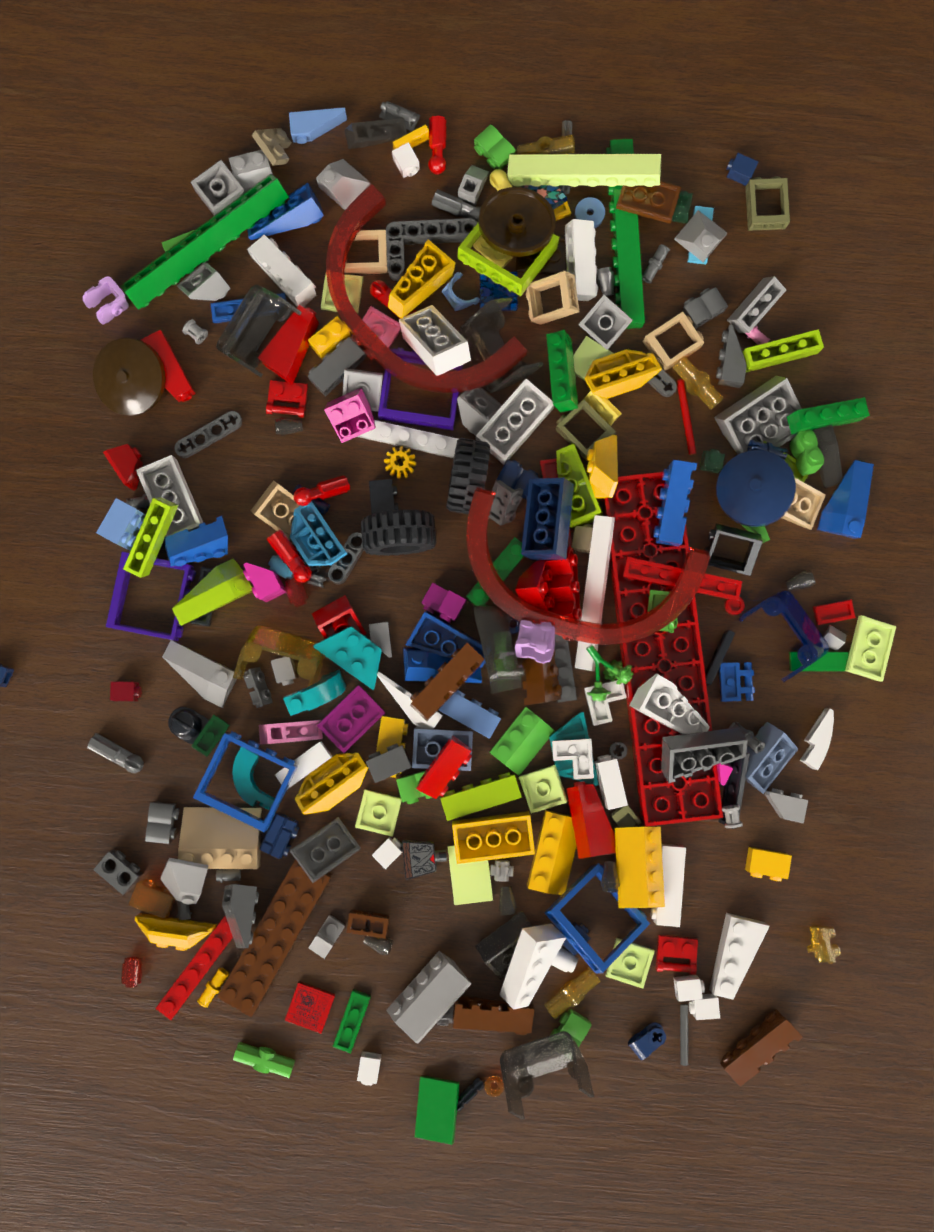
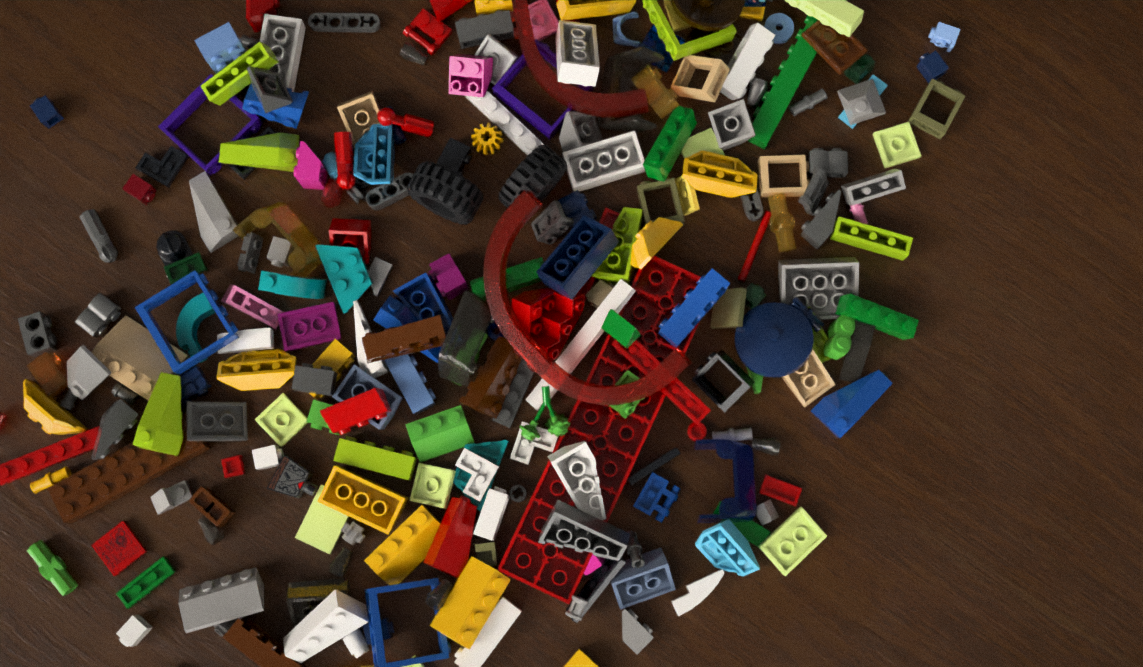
camera: 35 degrees right, 5 degrees down
(136, 660) = (164, 170): none -> black plate
(186, 535) = (269, 89): none -> dark grey slope
(280, 879) = (161, 421): none -> lime wedge
(362, 878) = (233, 466): none -> red tile
(529, 336) = (658, 96): none -> clear yellow brick
(535, 641) = (500, 351): lavender piece -> none
(624, 559) = (620, 329): none -> green slope
(704, 487) = (729, 309): none -> olive tile
(709, 337) = (814, 191): none -> dark grey plate
(736, 135) = (944, 36): none -> light blue brick
(752, 256) = (896, 145): none -> yellowish green tile
(767, 590) = (735, 435): none -> light grey pin
(823, 688) = (727, 549): none -> medium azure wedge

